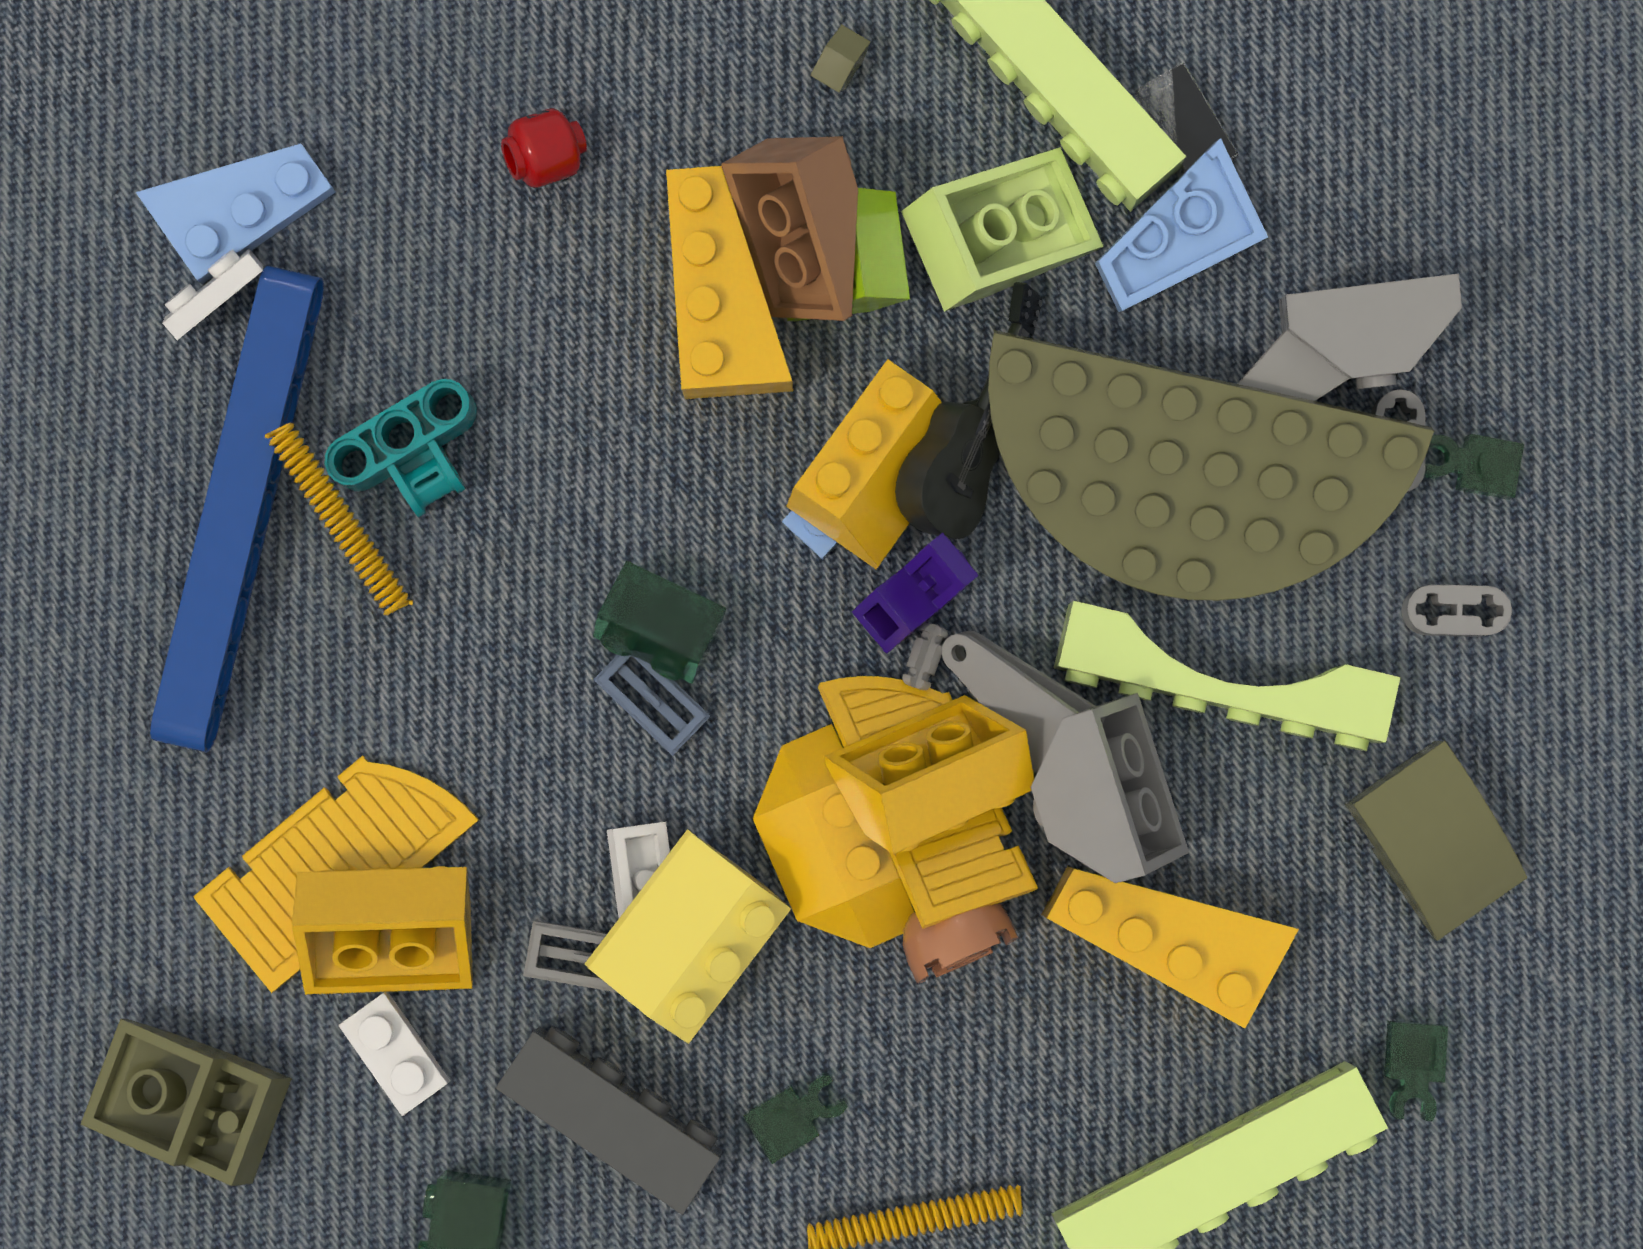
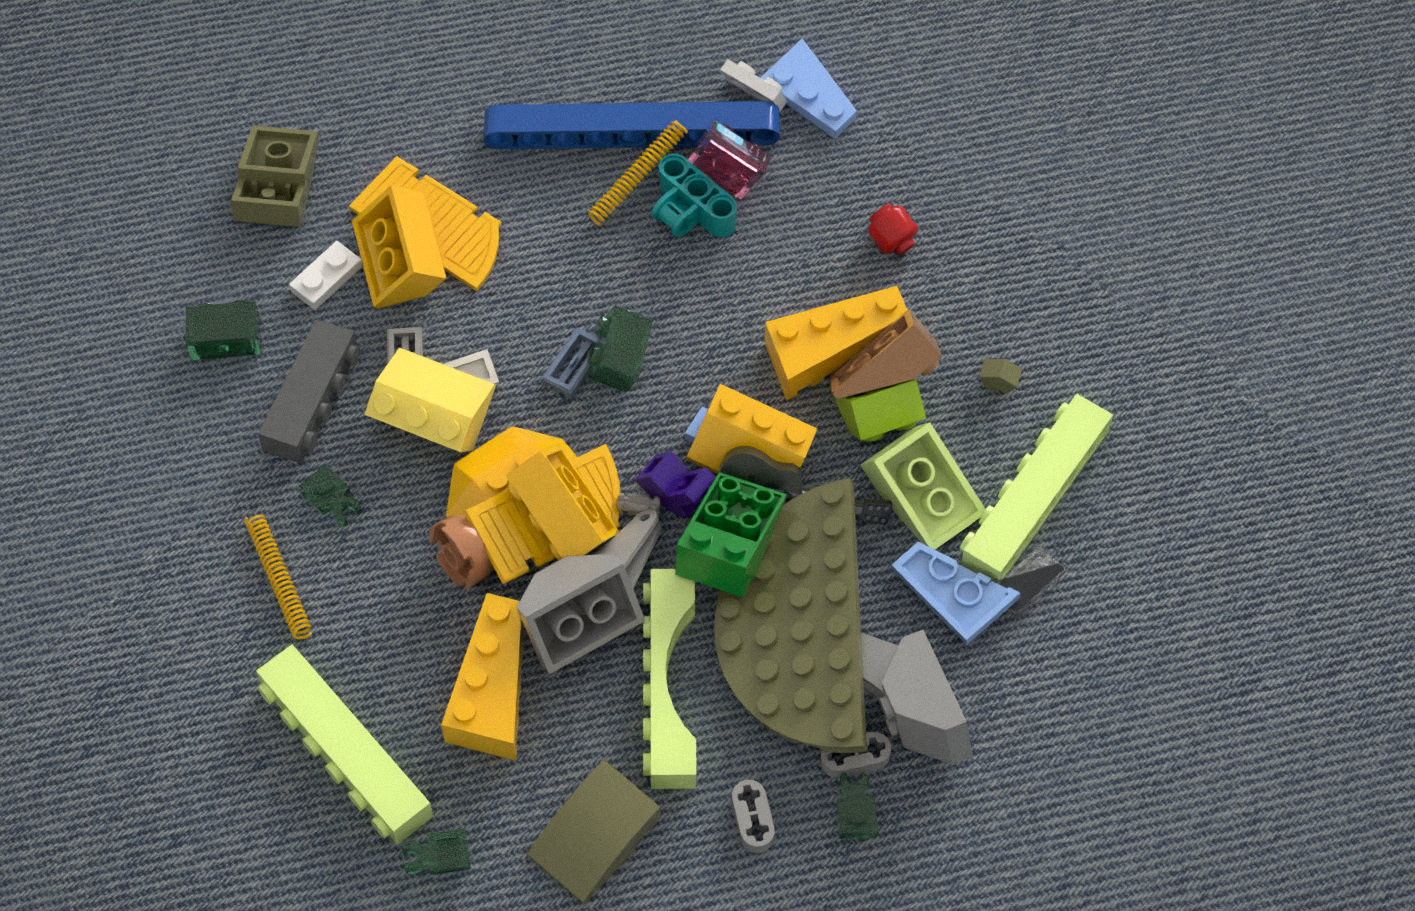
camera: 75 degrees right, 25 degrees down
(356, 366) = (729, 159): none -> clear pink slope
(1040, 532) = (729, 534): none -> green slope

